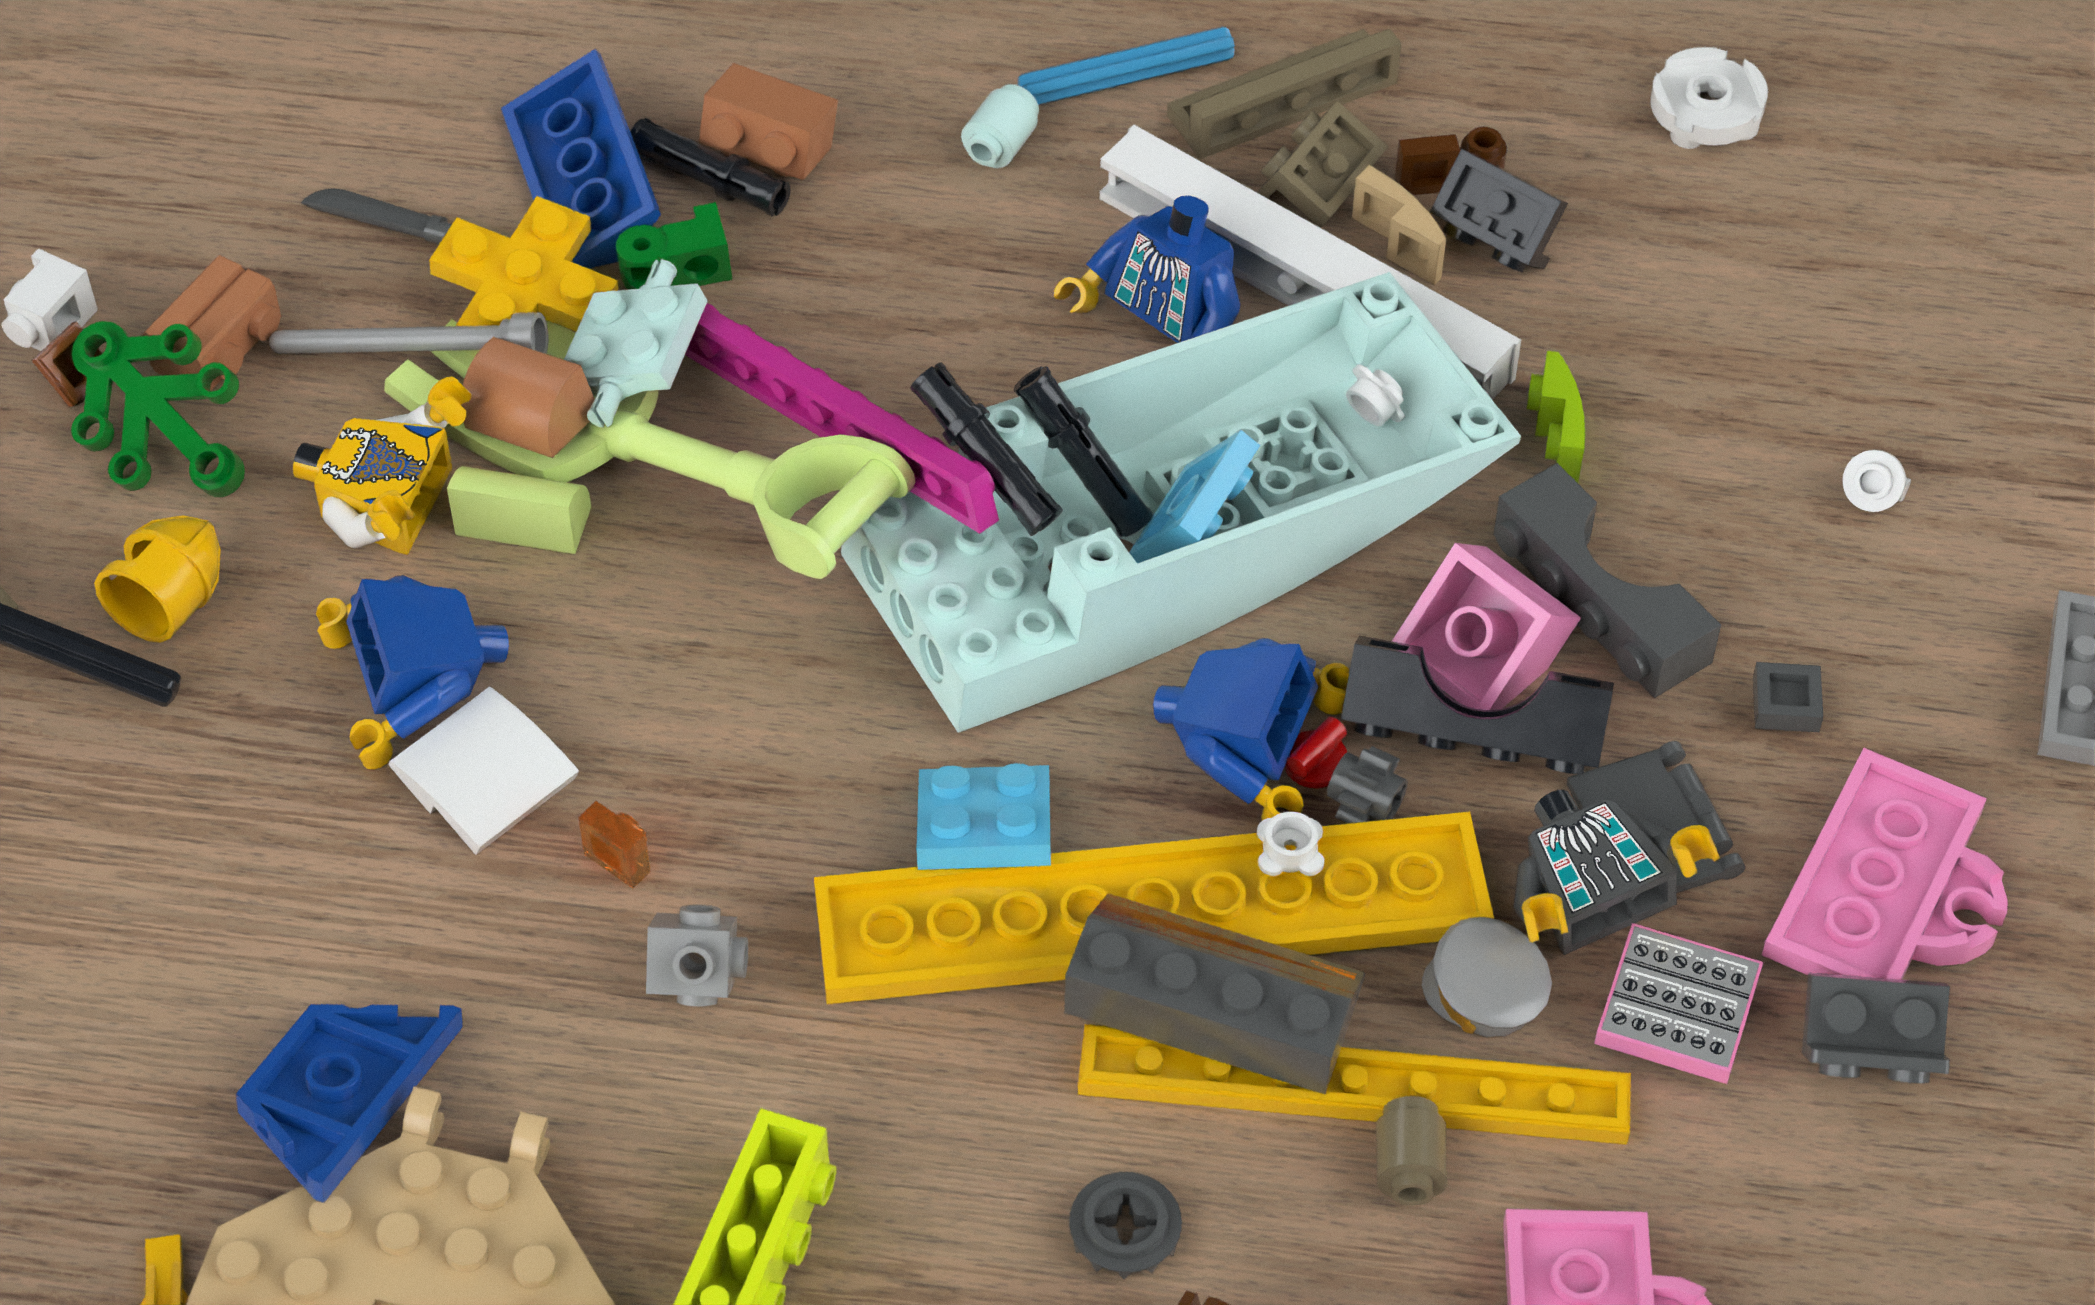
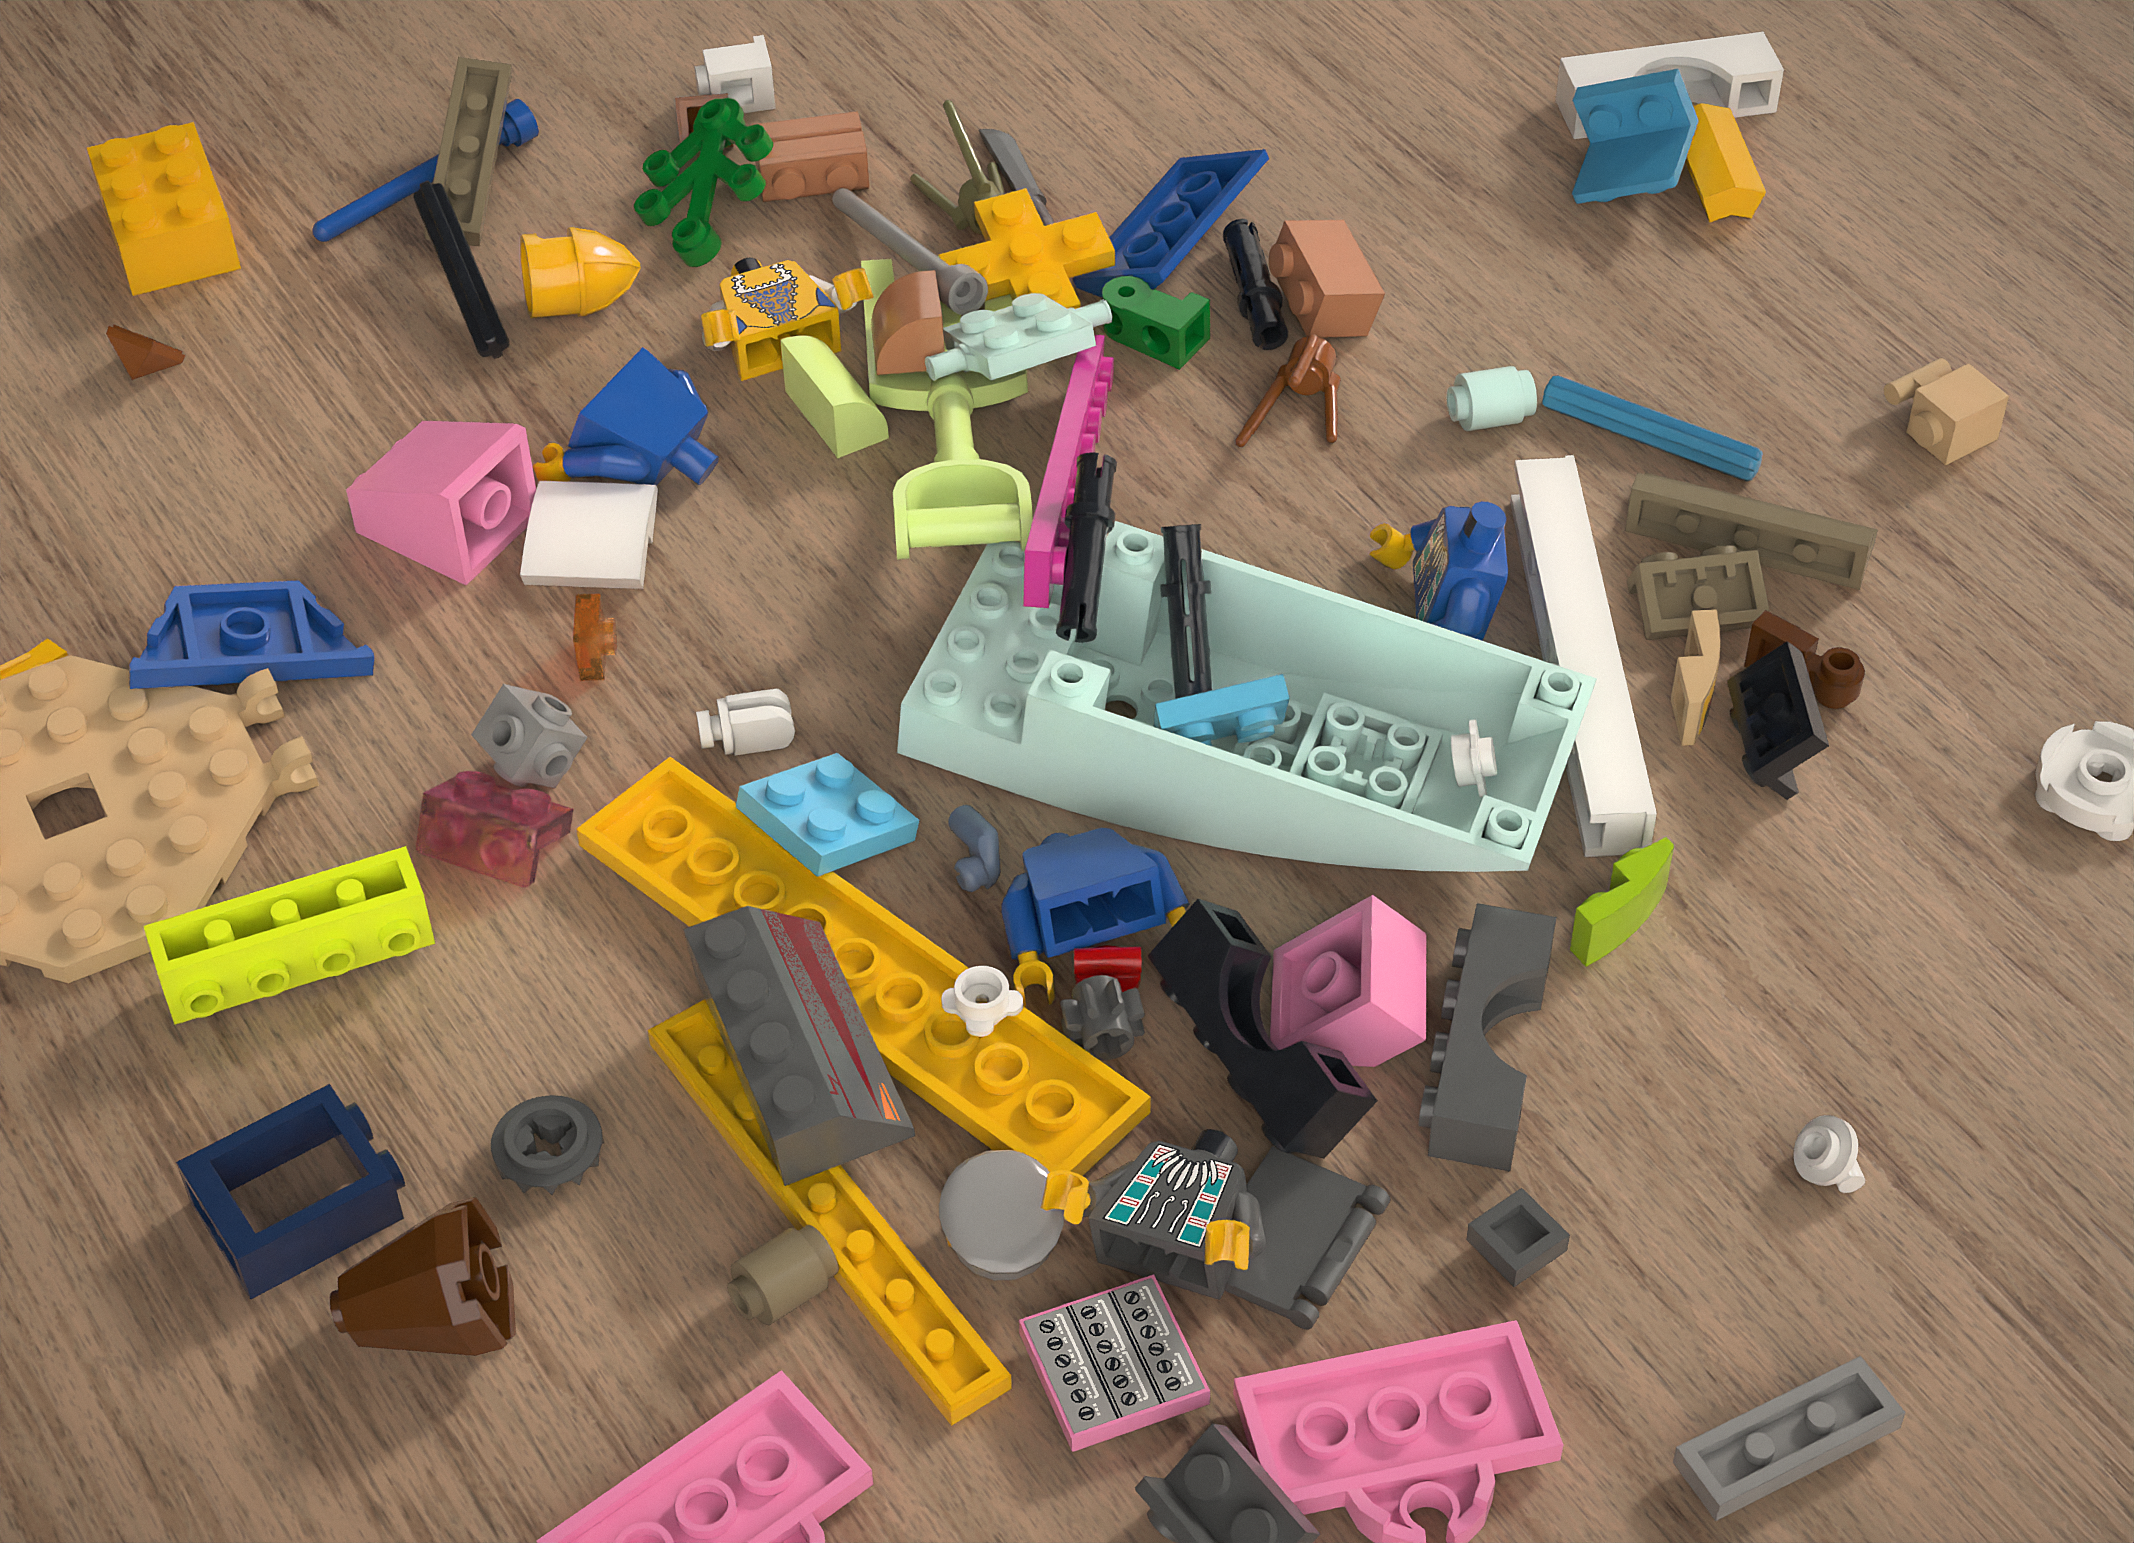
camera: 50 degrees right, 5 degrees down
(332, 832) = (448, 495): none -> bright pink slope
(402, 256) = (972, 190): none -> olive plant
(749, 1049) = (489, 826): none -> clear pink bracket
(825, 806) = (748, 723): none -> white arm
(846, 206) = (1306, 373): none -> dark orange plant
(1118, 746) = (983, 845): none -> sand blue arm

